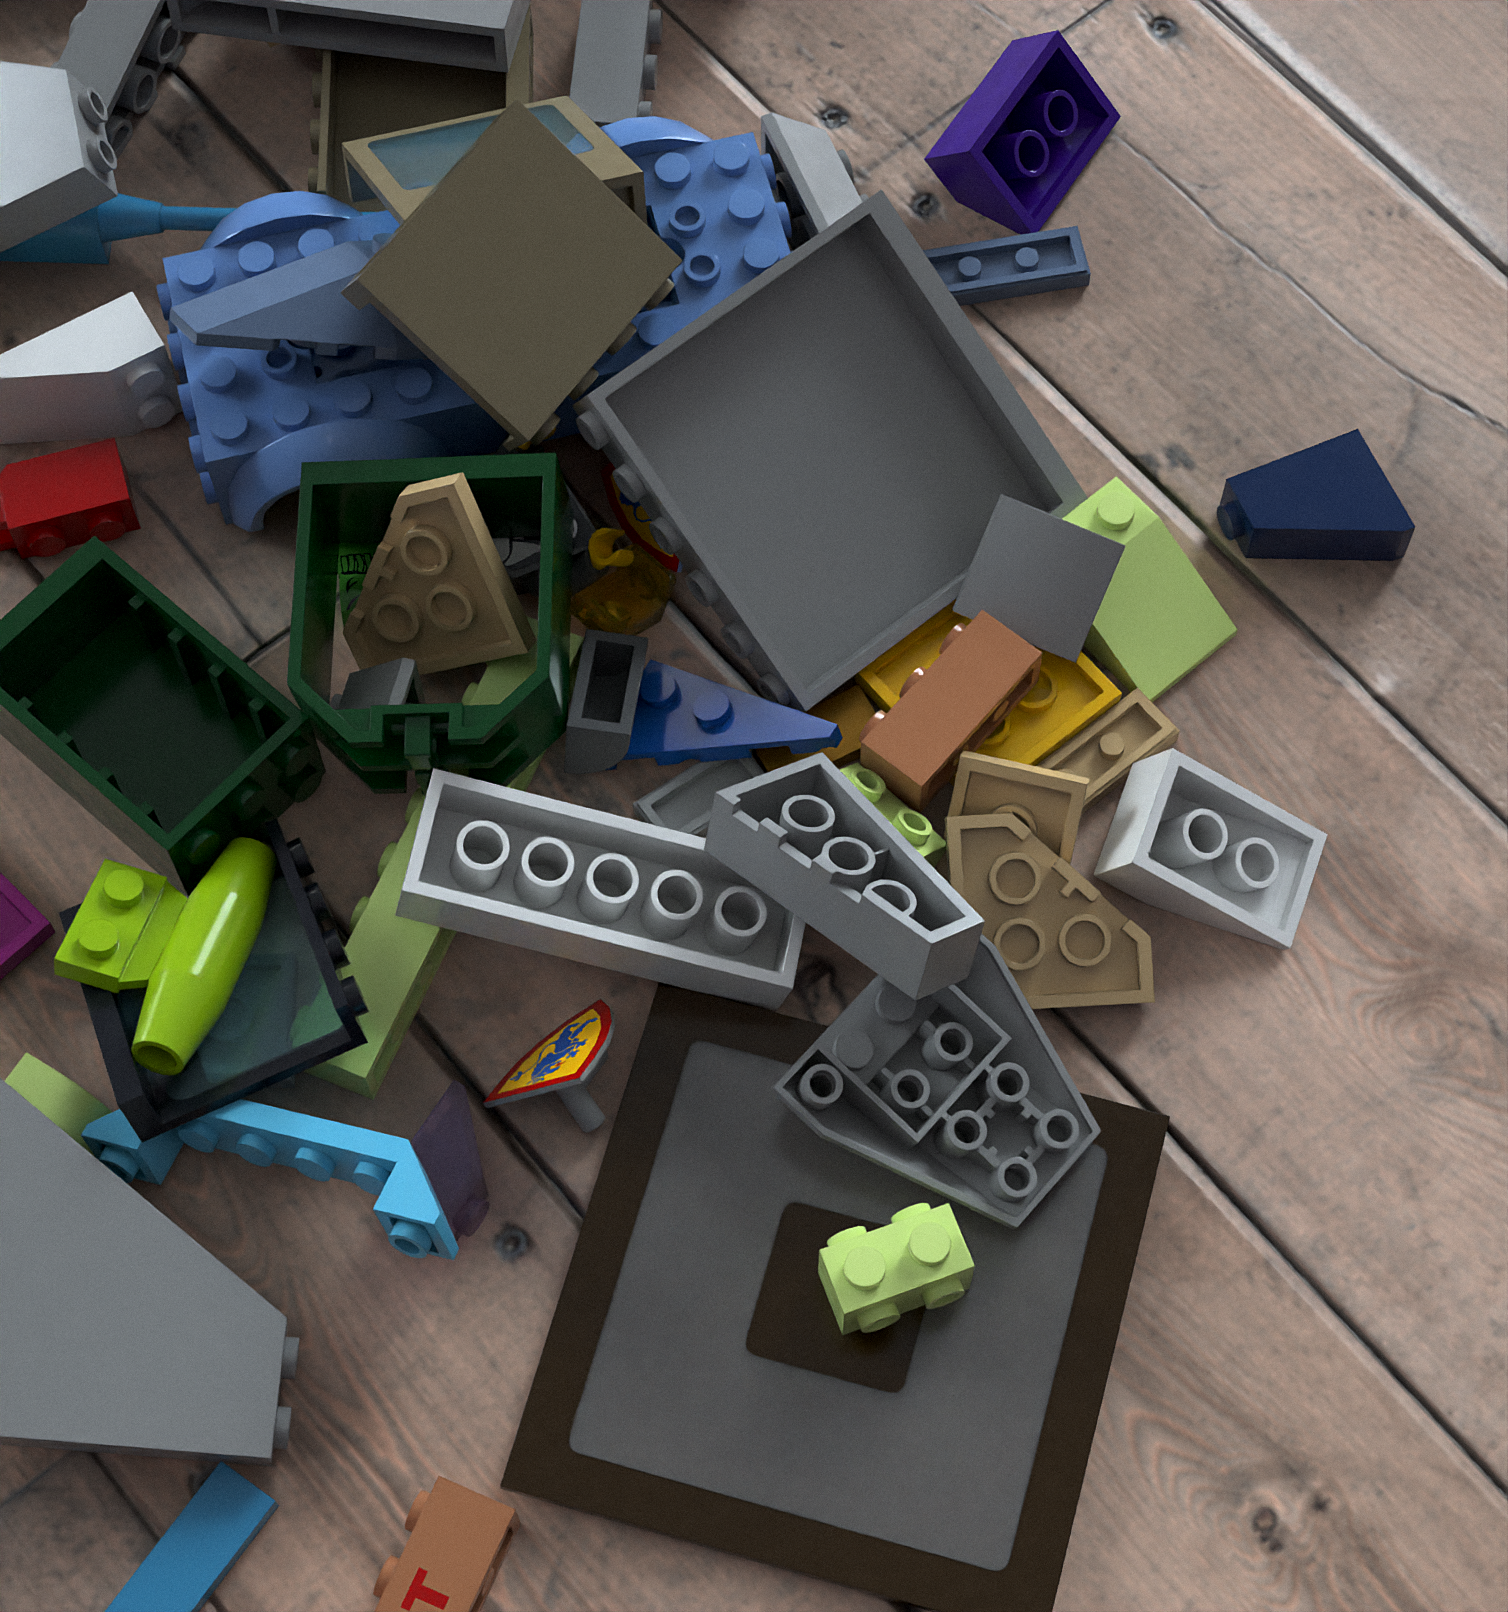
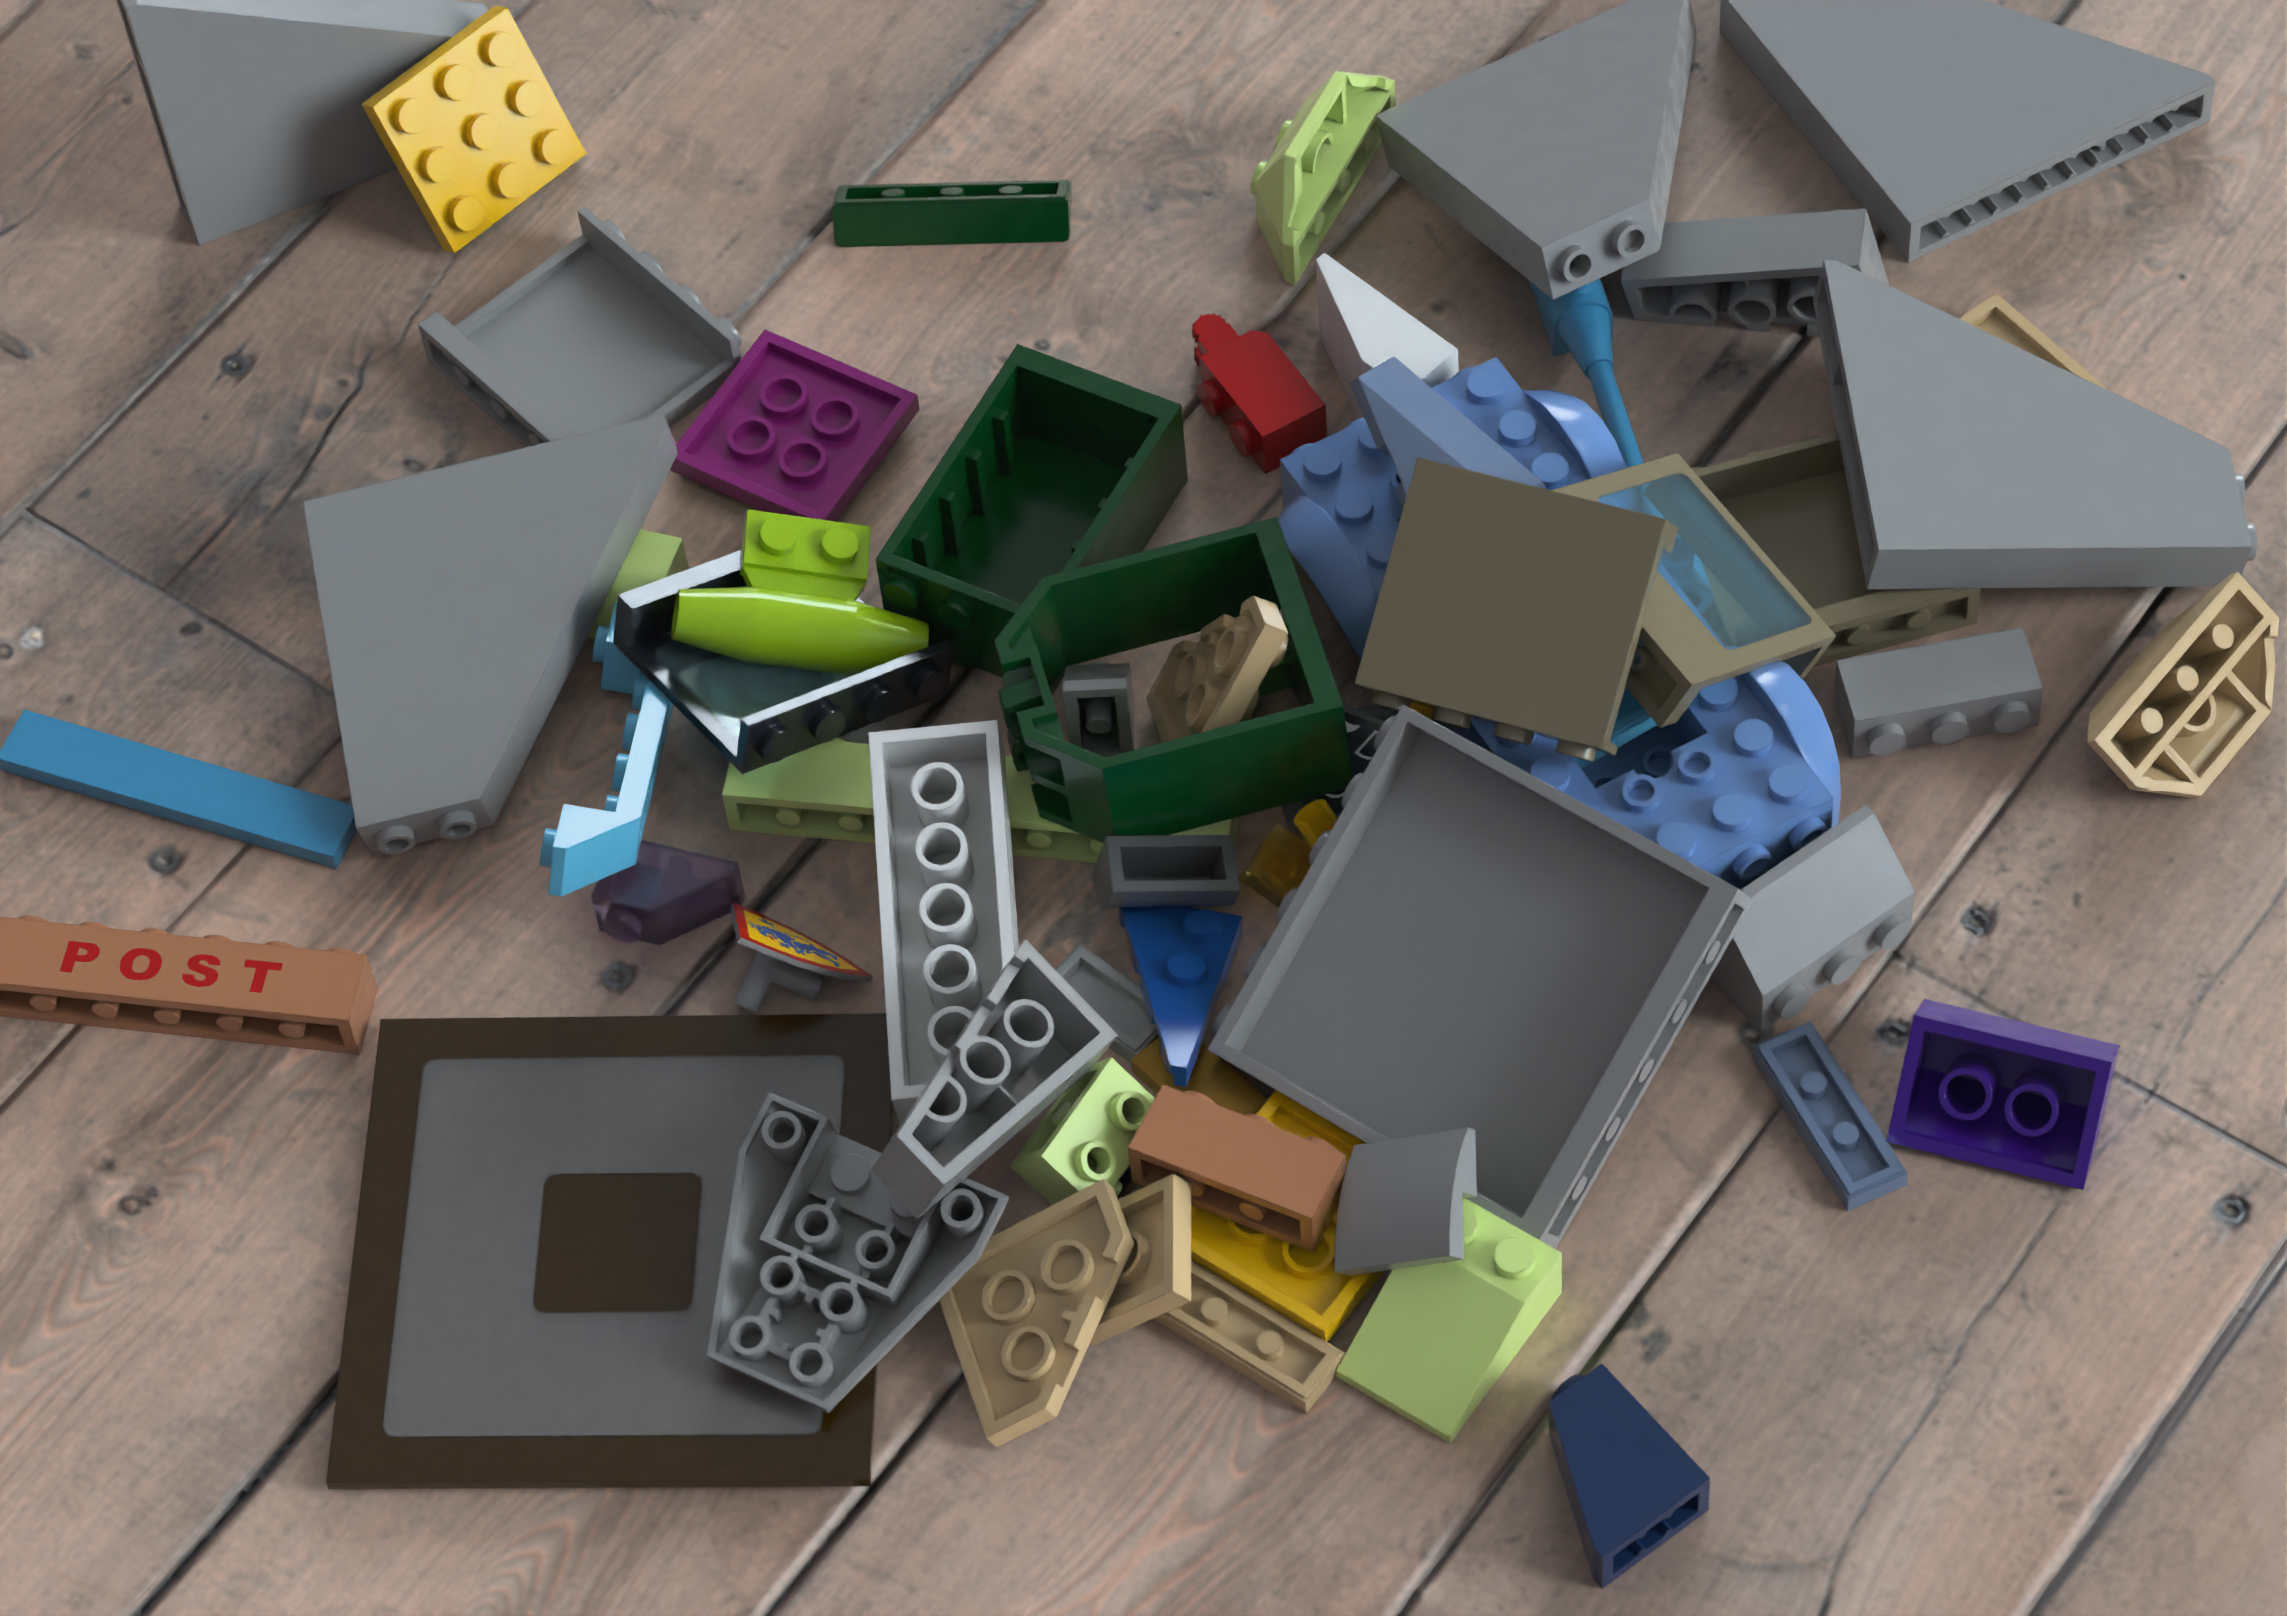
camera: 80 degrees right, 10 degrees down
(895, 1268) = (637, 1259): yellowish green brick -> none
(1210, 850) = (1167, 1458): white slope -> none

